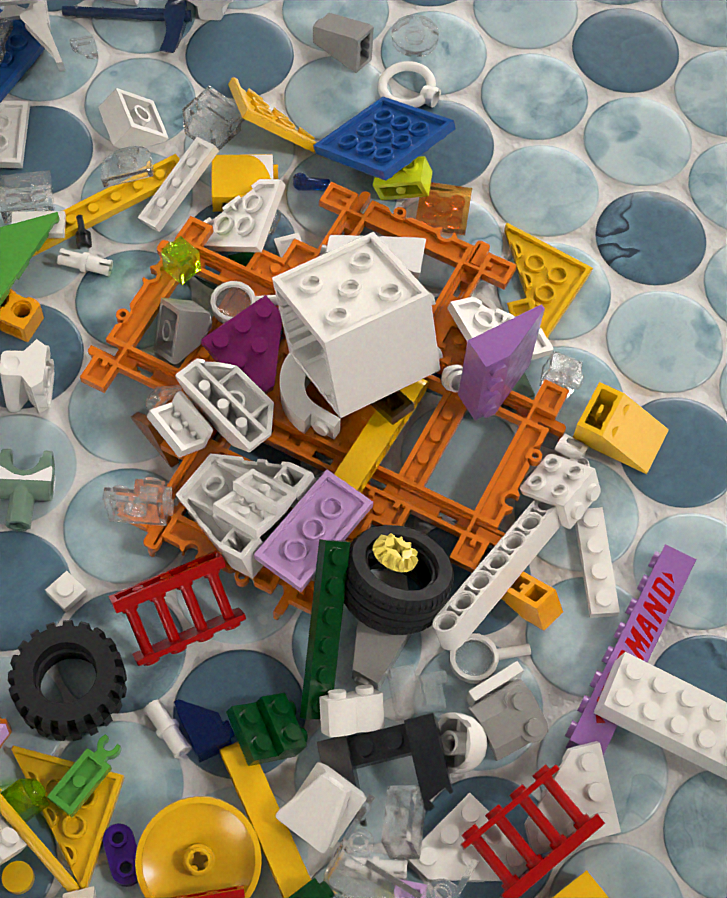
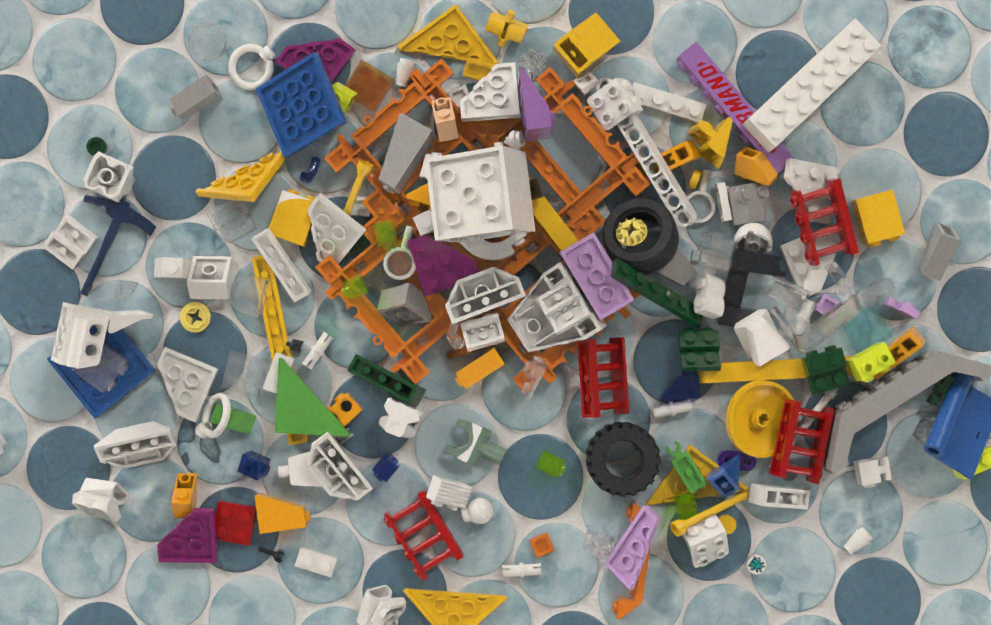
camera: 65 degrees left, 25 degrees up
(28, 590) = (551, 464): none -> clear neon green brick
(66, 591) = (557, 440): white plate -> none
(70, 119) = (192, 308): none -> light yellow gear
(72, 353) = (386, 380): none -> dark green slope
(88, 839) = (726, 477): none -> blue slope
(128, 71) = (172, 268): none -> white slope
(133, 451) = (479, 369): none -> light orange slope
(261, 270) = (386, 234): none -> clear neon green brick
(336, 223) = (364, 168): none -> yellow piece
(445, 285) = (445, 119): none -> light nougat slope
(456, 153) = (332, 53): none -> magenta plate
(484, 234) = (404, 68): none -> white cone
(509, 635) = (695, 179): none -> yellow tile
(564, 703) = (754, 166): none -> light orange slope
(572, 635) = (712, 142): none -> yellow piece
(593, 329) = (506, 28): none -> yellow pin

